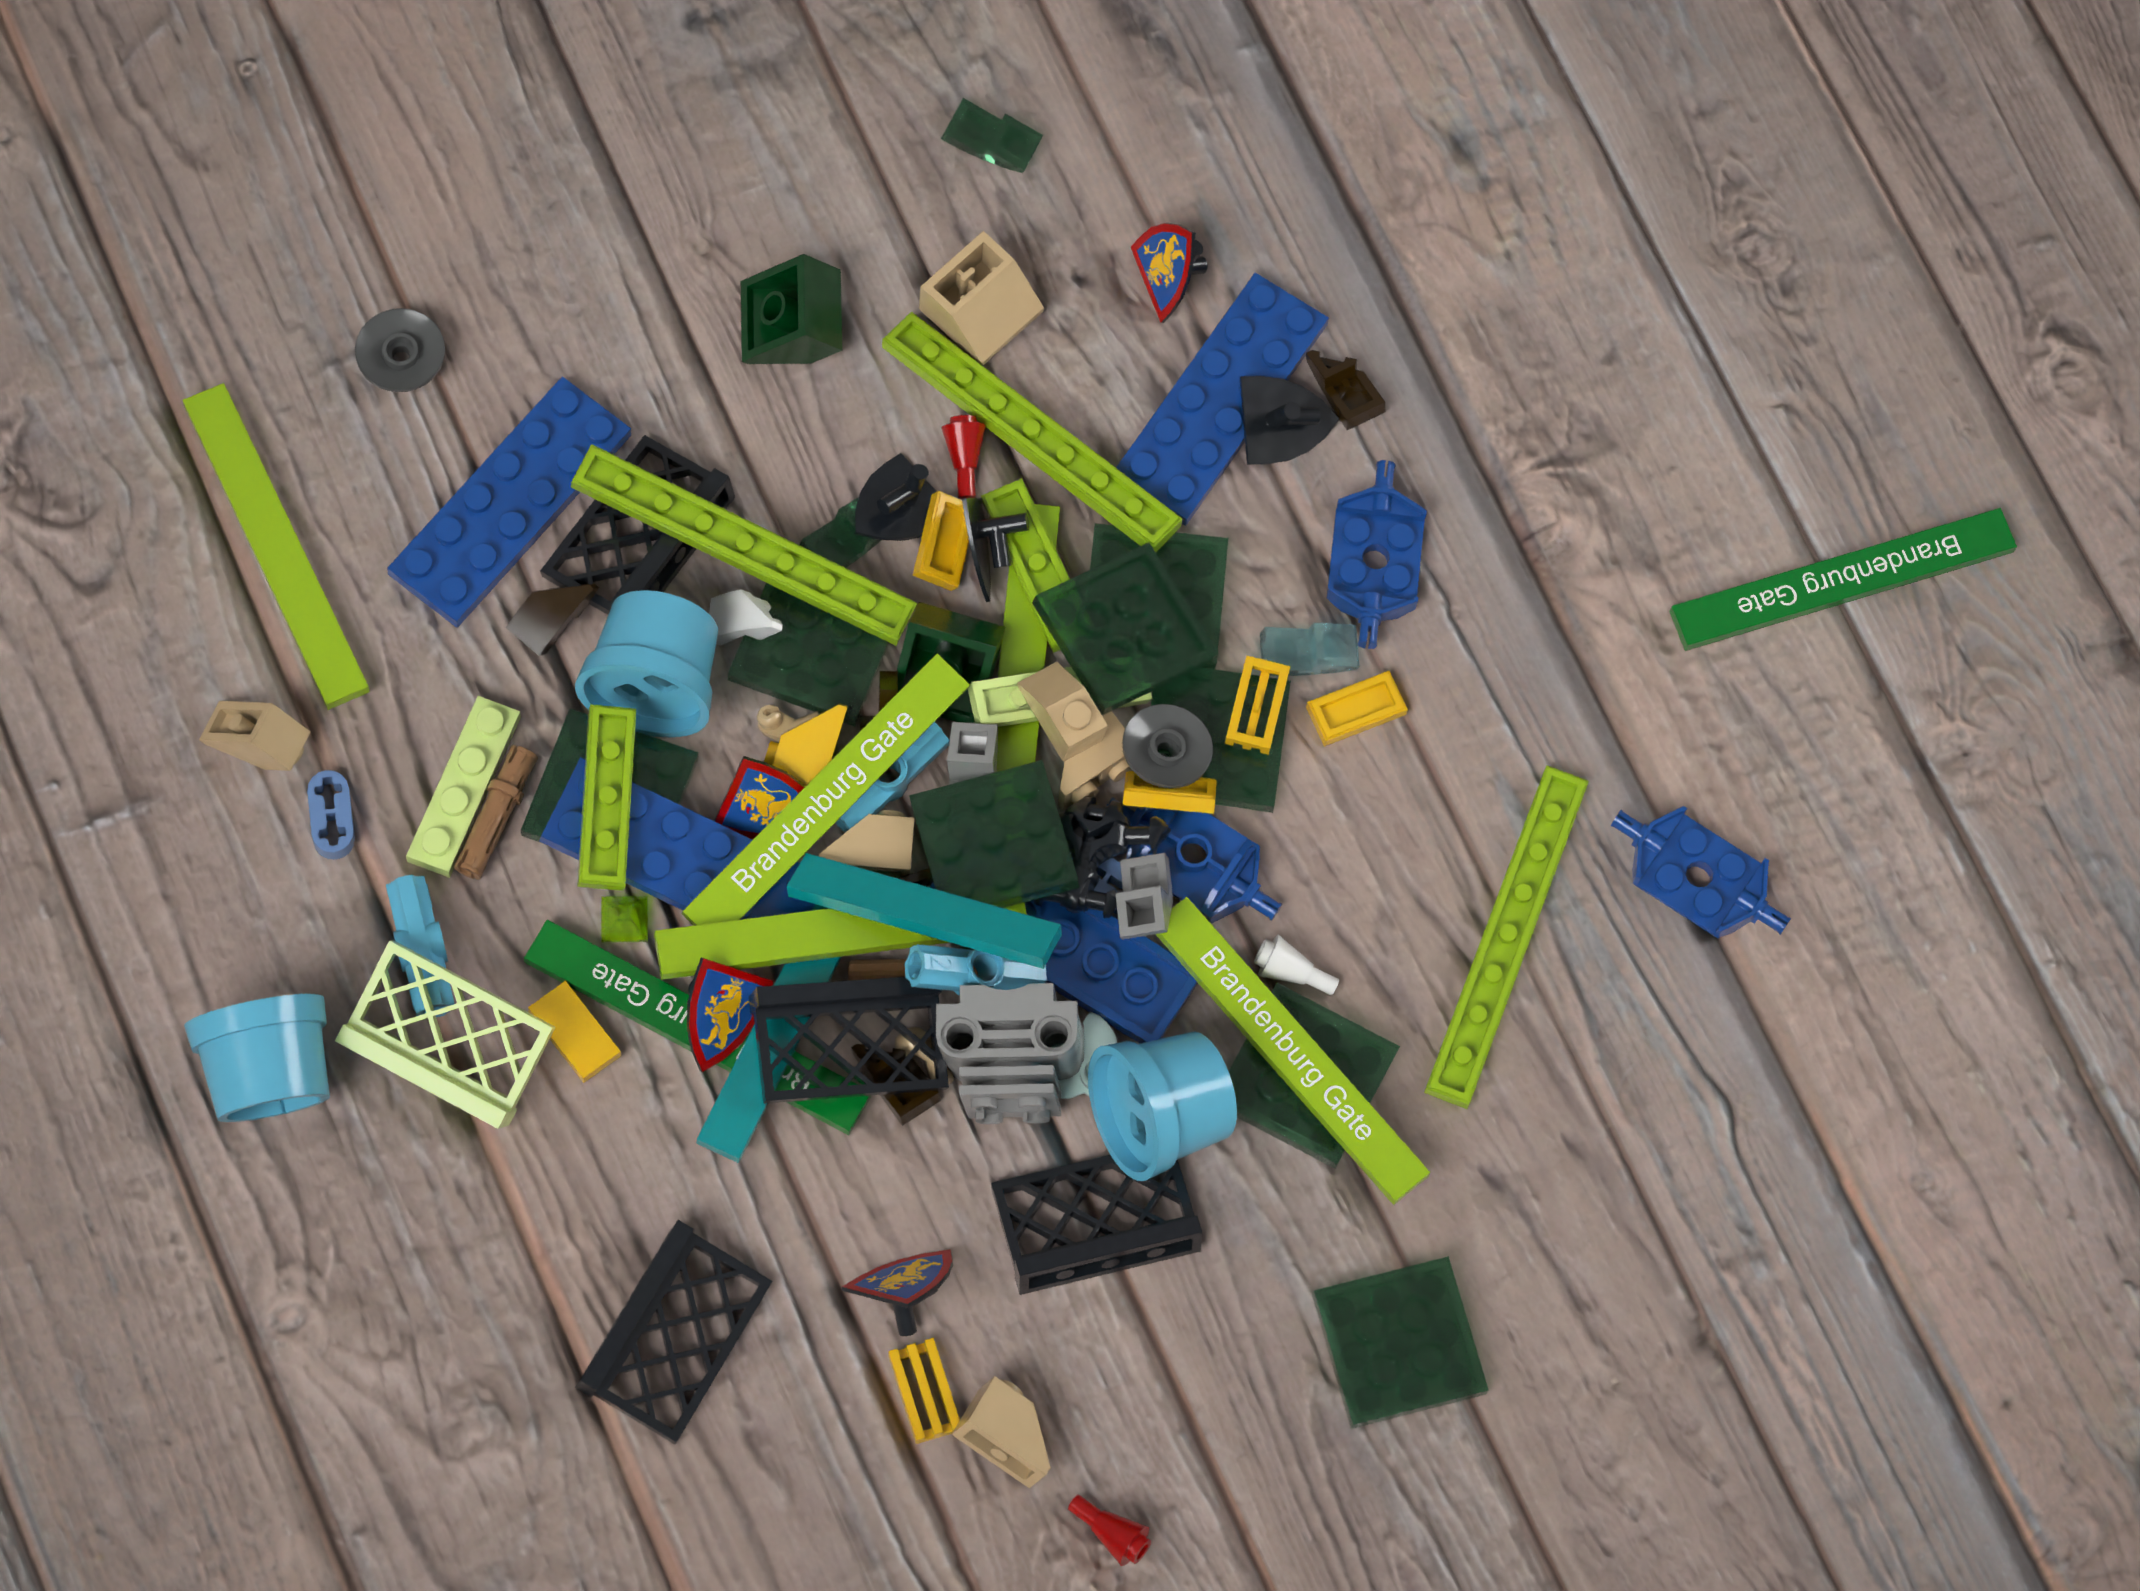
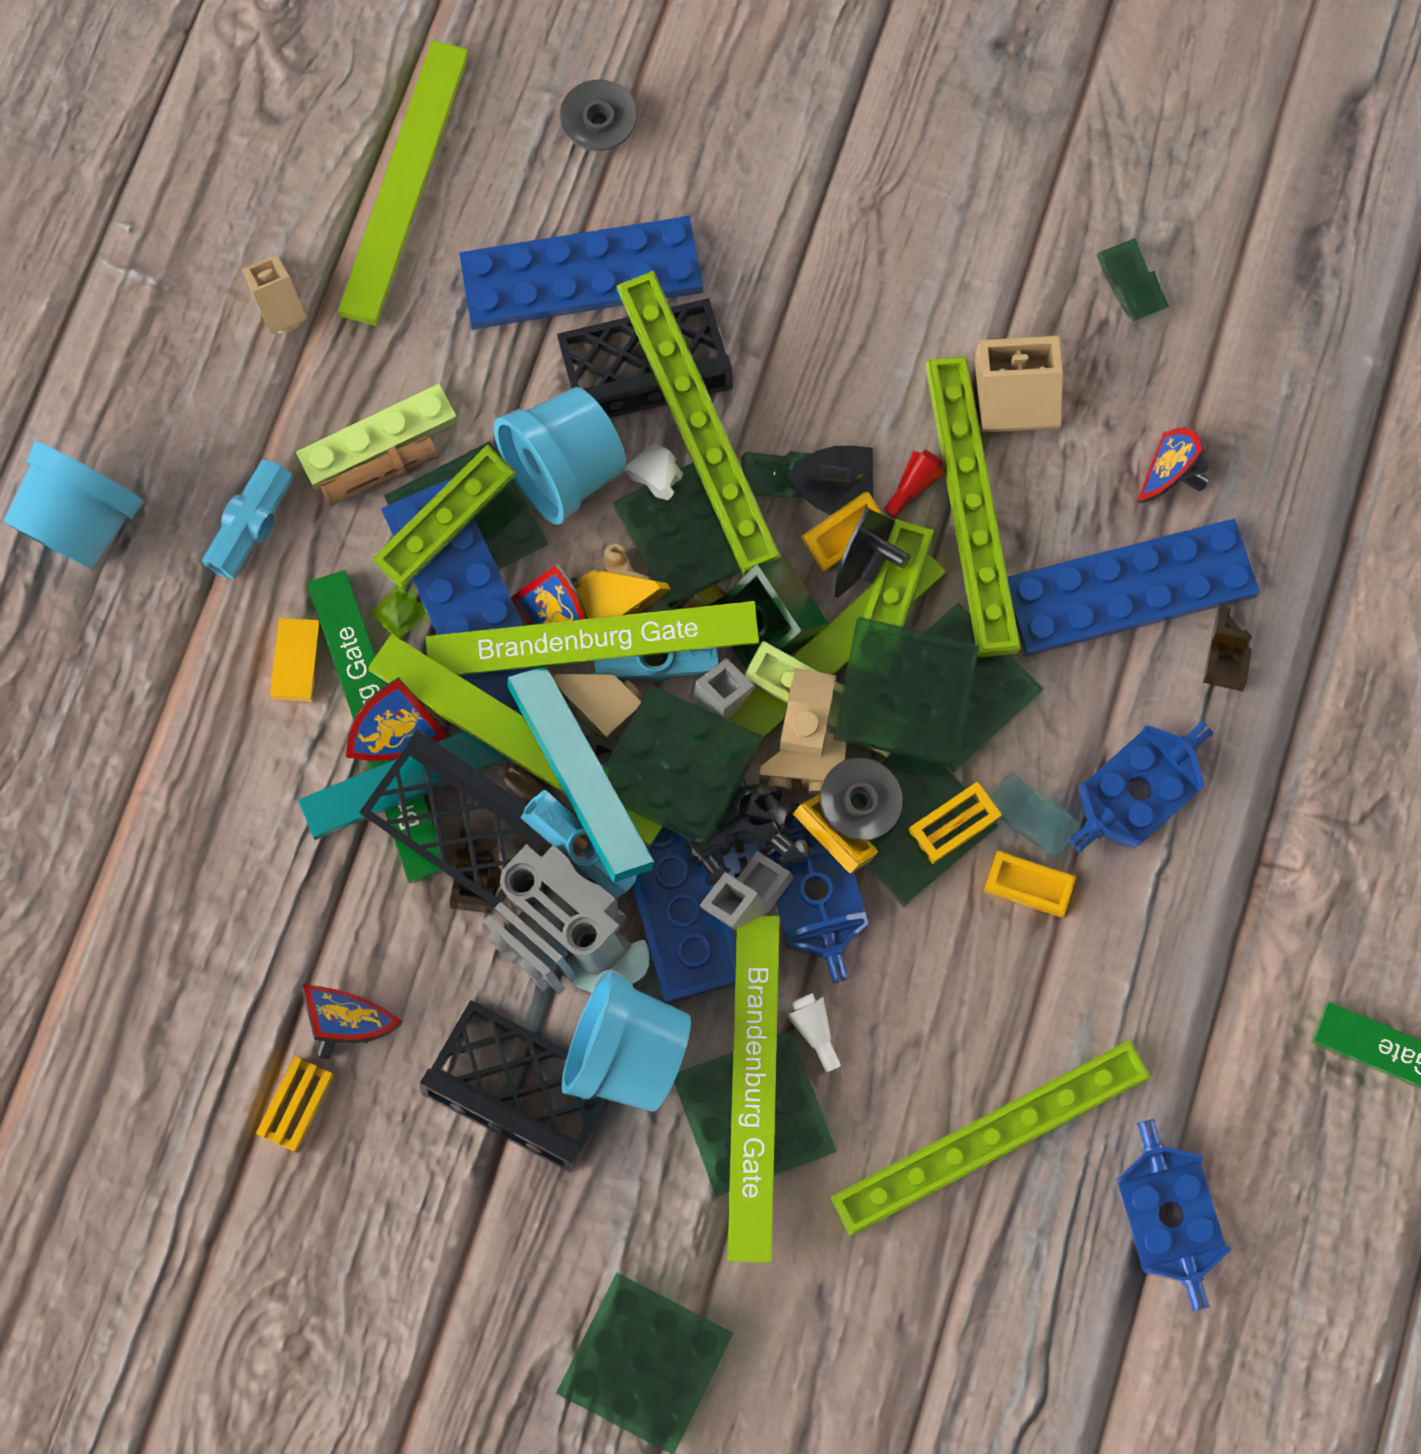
camera: 50 degrees right, 5 degrees up
(341, 813) = (268, 381): medium blue beam -> none
(424, 1069) = (176, 612): yellowish green fence -> none
(548, 613) = (531, 365): dark brown slope -> none
(639, 1310) = (156, 884): black fence -> none
(791, 313) = (882, 293): dark green slope -> none
(1005, 1431) = (317, 1179): tan slope -> none
(1120, 1536) = (328, 1324): red cone -> none
(1281, 419) = (1159, 636): black shield -> none

